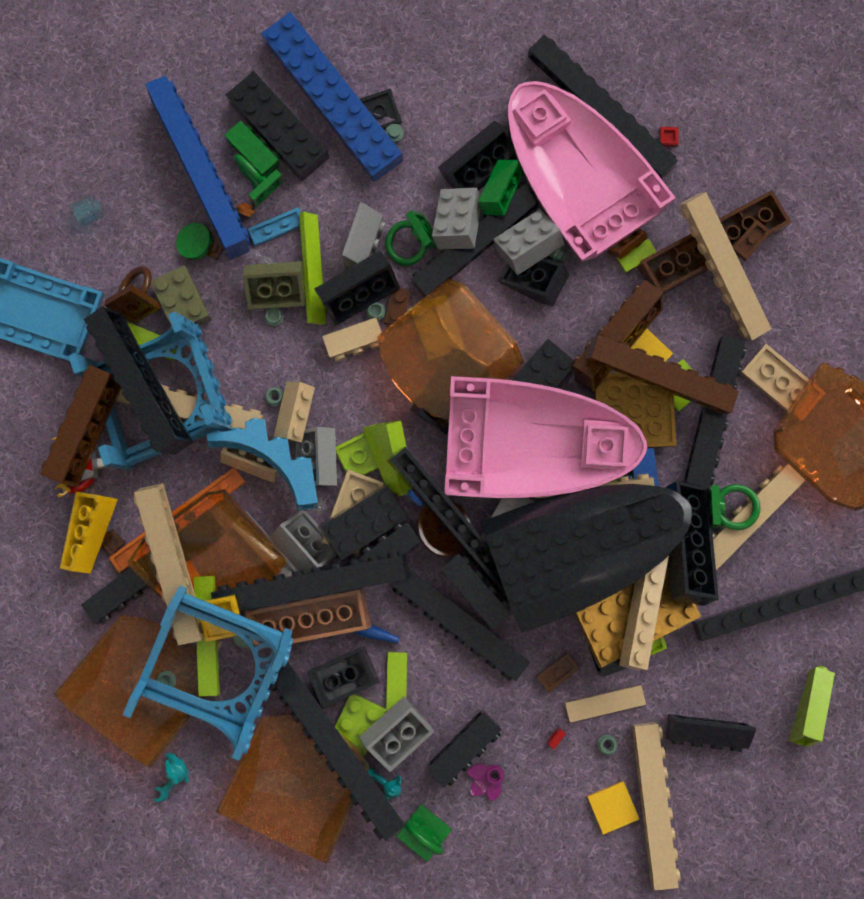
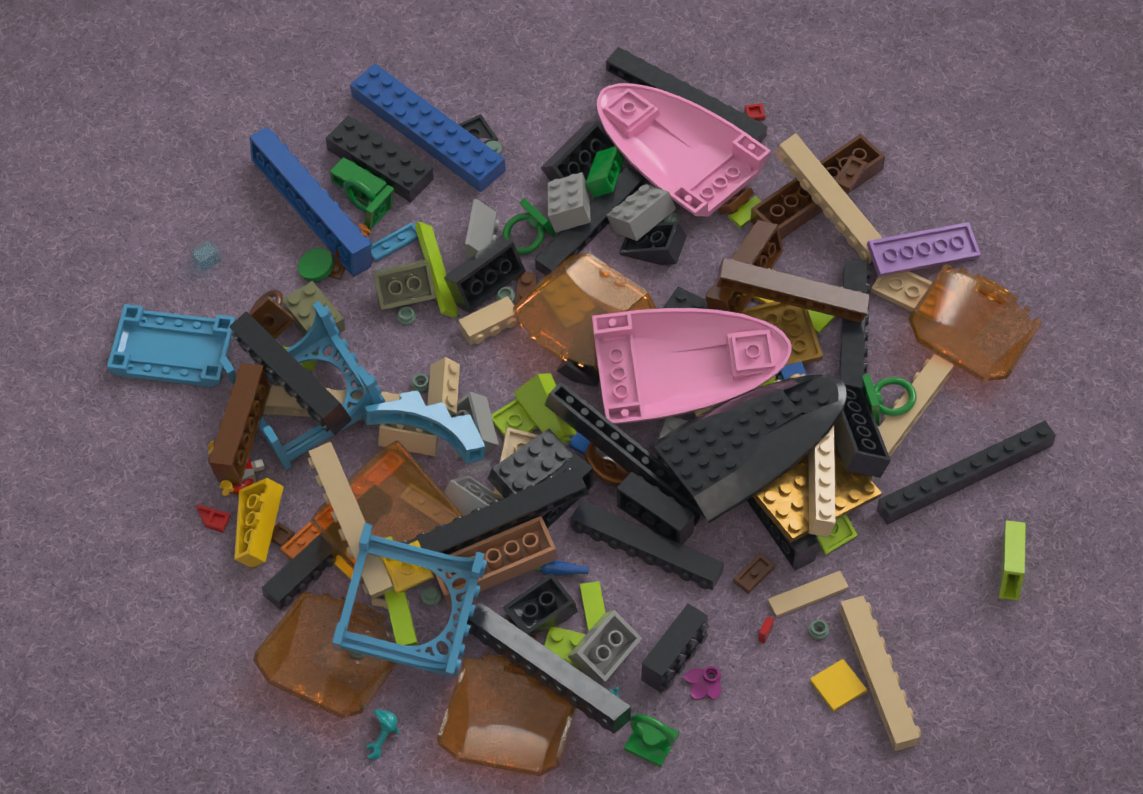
camera: 10 degrees left, 25 degrees down
(50, 511) = (213, 518): none -> red tile
(709, 731) = (916, 594): black slope -> none
(805, 338) = (923, 249): none -> medium lavender plate

